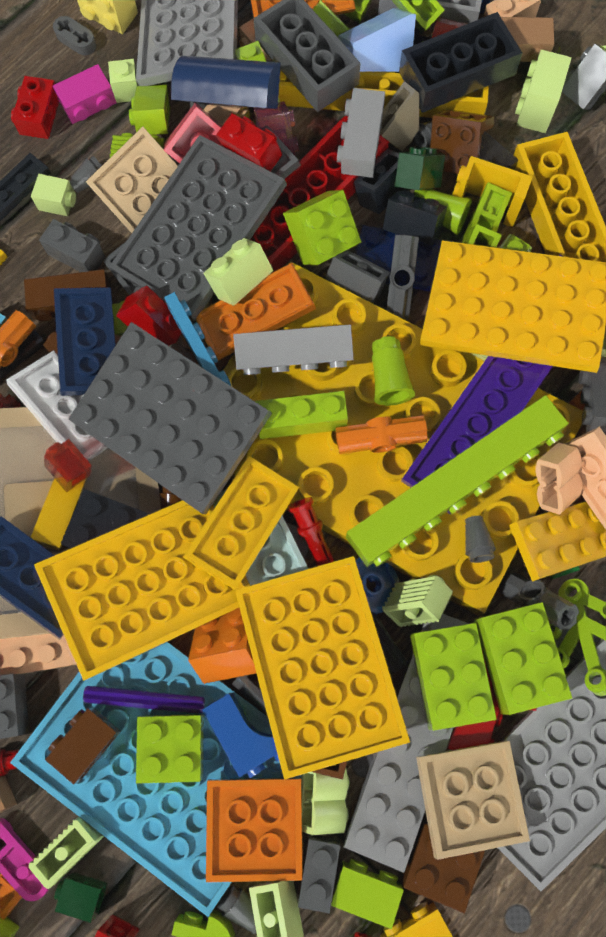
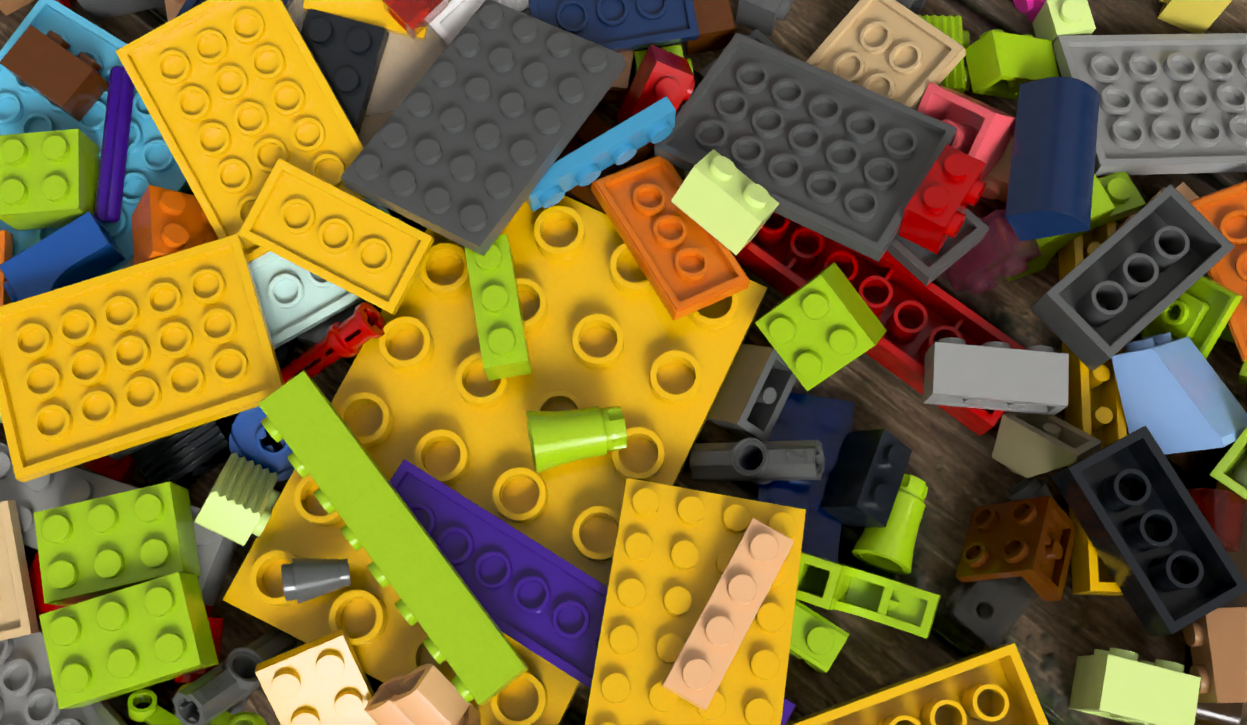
camera: 85 degrees right, 0 degrees up
(293, 347) = (602, 289): light grey brick -> none
(375, 191) = (935, 433): black brick -> none
(381, 434) = (474, 427): orange piece -> none
(420, 169) = (949, 481): dark green brick -> none
(480, 172) = (950, 585): yellow panel -> none
(511, 279) = (728, 614): none -> light nougat plate

